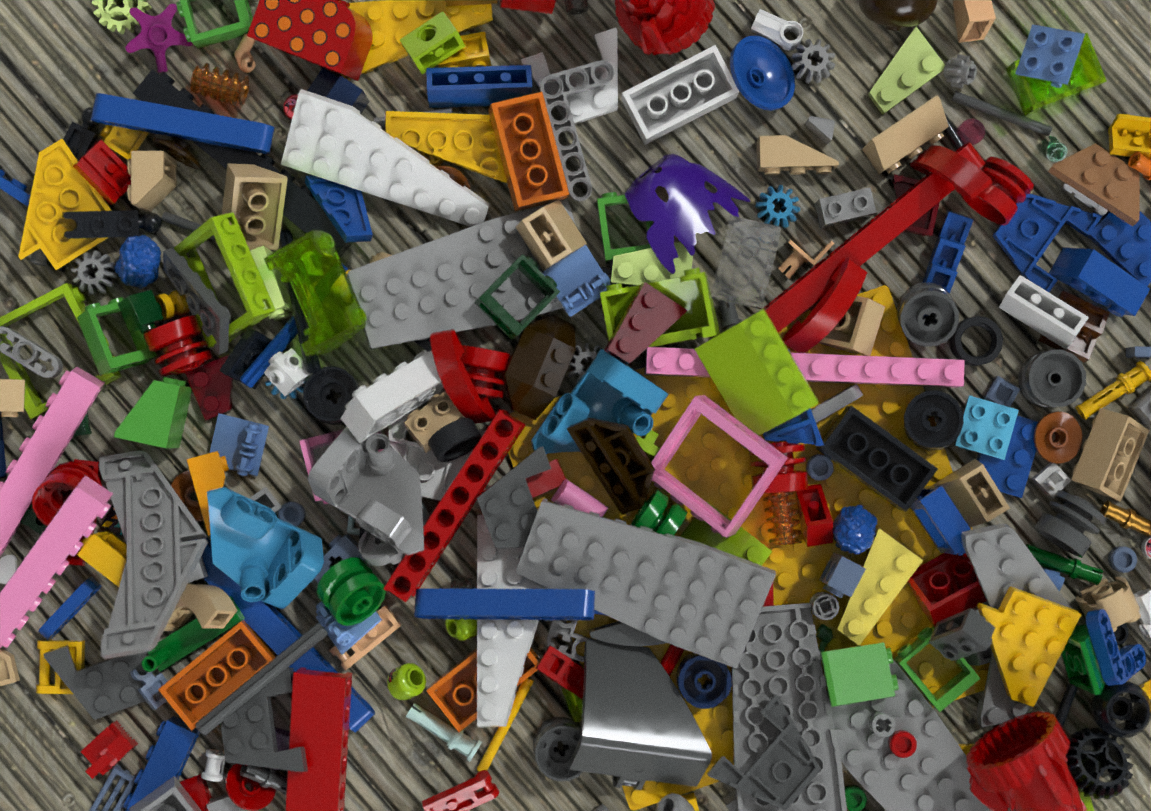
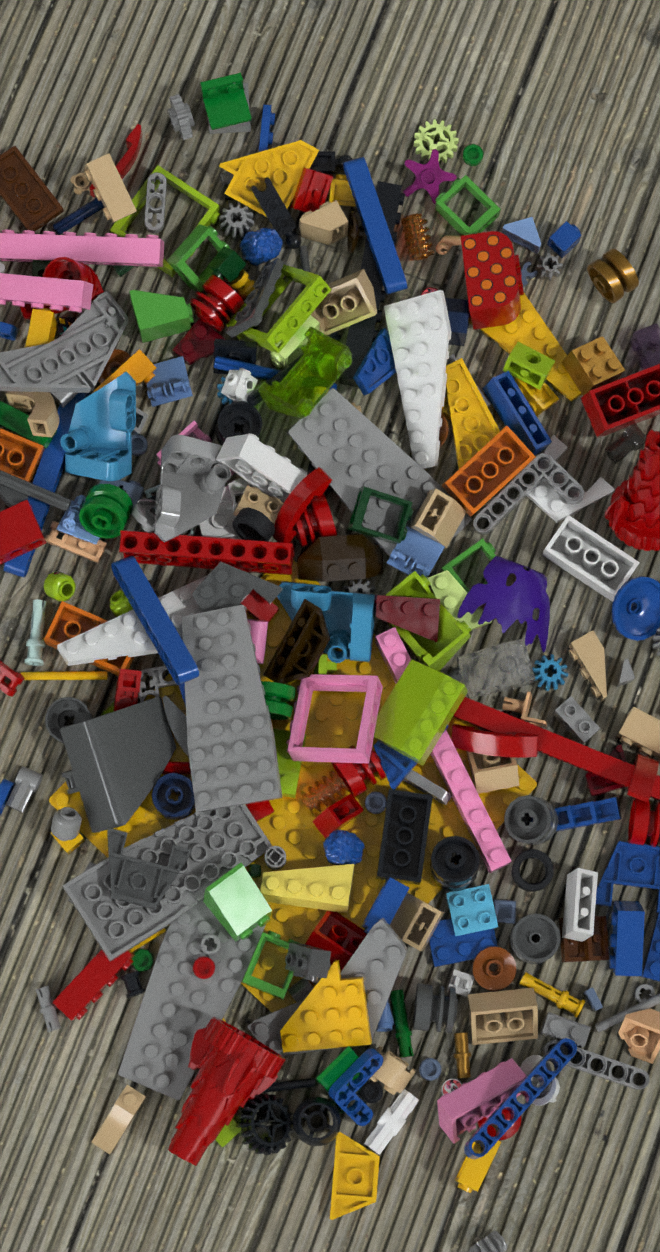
camera: 60 degrees right, 10 degrees down
(841, 576) = (304, 855): sand blue brick -> none

